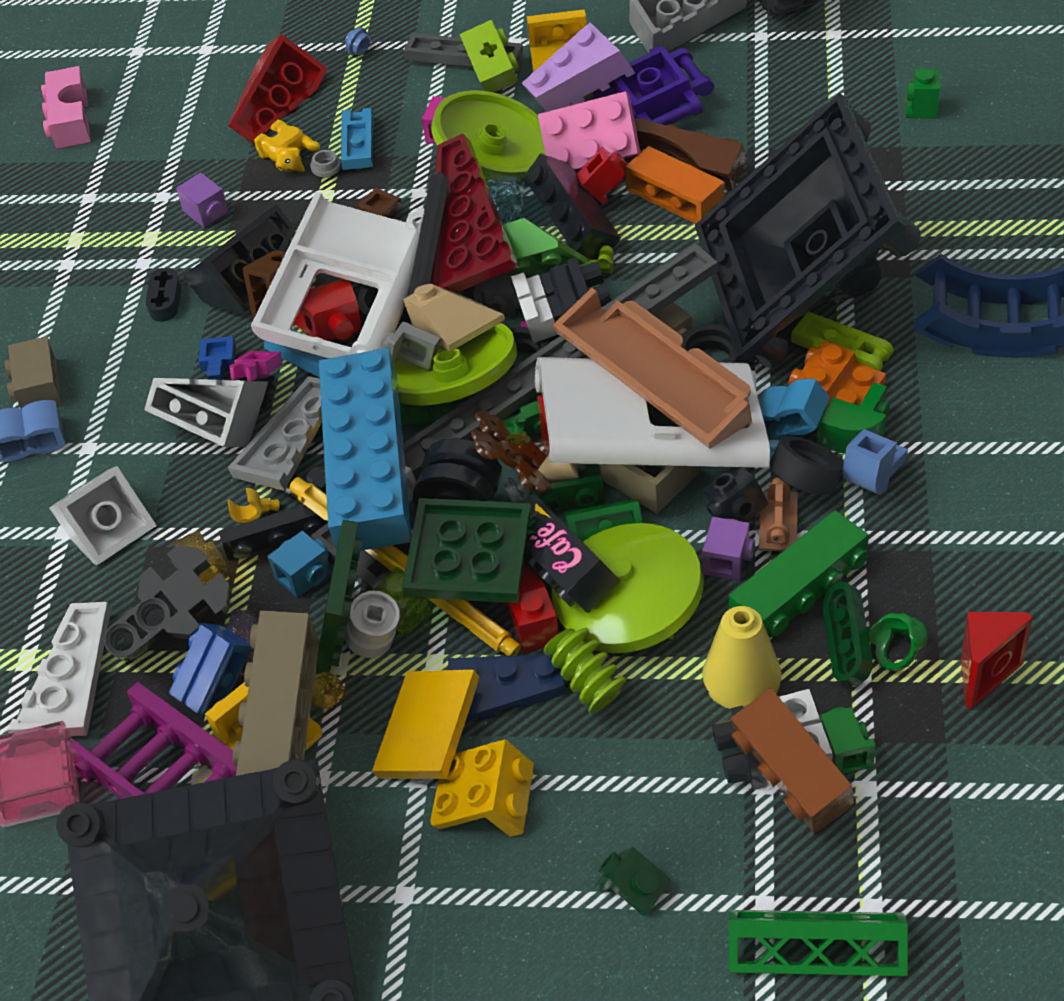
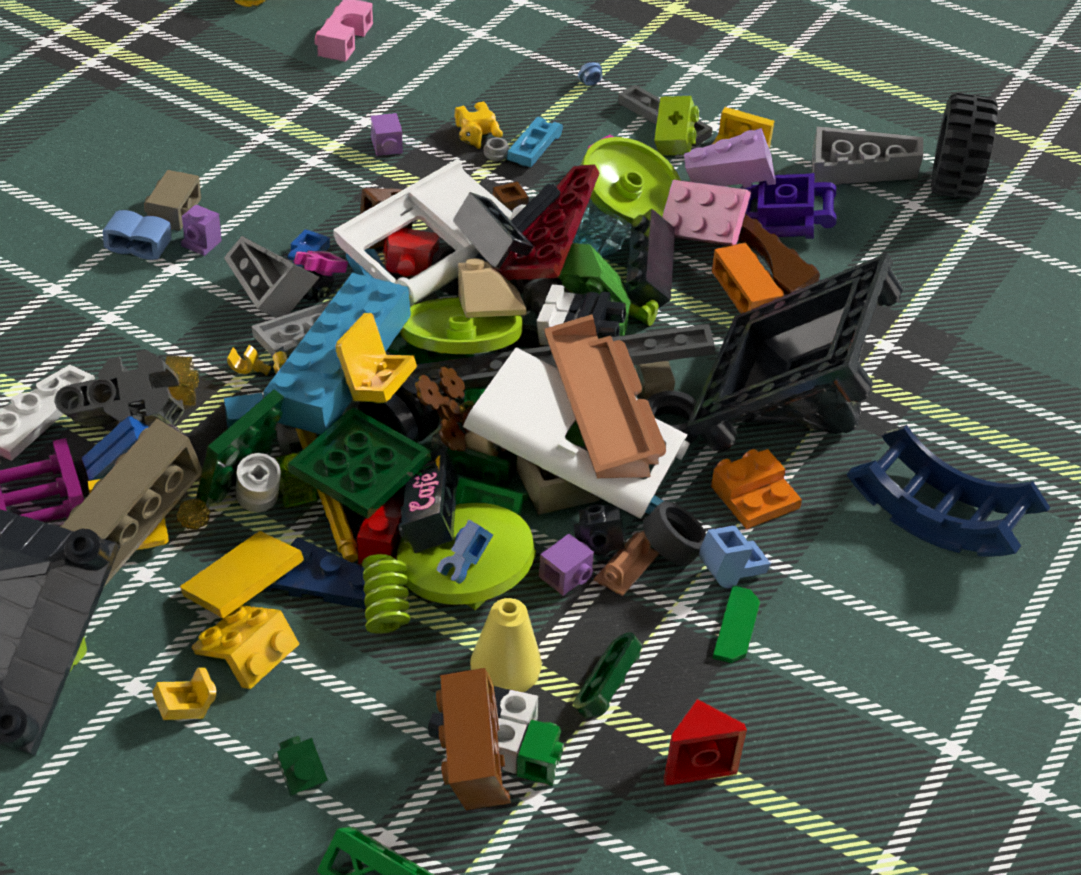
camera: 20 degrees right, 5 degrees down
(91, 392) = (201, 230): none -> medium lavender brick
(103, 516) = (140, 316): white slope -> none
(157, 295) = (307, 188): black beam -> none
(220, 276) = (347, 185): black wedge -> none
(269, 531) = (233, 382): black plate -> none
(276, 87) = (504, 80): red wedge -> none
(412, 250) = (490, 230): none -> panel
(412, 345) = (440, 298): light grey bracket -> none
(424, 453) = (366, 366): none -> yellow bracket
(473, 876) = (185, 699): none -> yellow bracket
(602, 173) = (692, 247): red brick -> none
(645, 575) = (468, 548): none -> blue plate
(792, 408) = (696, 485): dark azure brick -> none
(803, 572) = (605, 613): green brick -> none
(815, 329) = (790, 457): lime plate -> none
(845, 420) = (752, 523): green brick -> none
(900, 624) = (636, 690): green piece -> none
(917, 524) = (737, 625): none -> green piece
(923, 94) = (1007, 304): green brick -> none

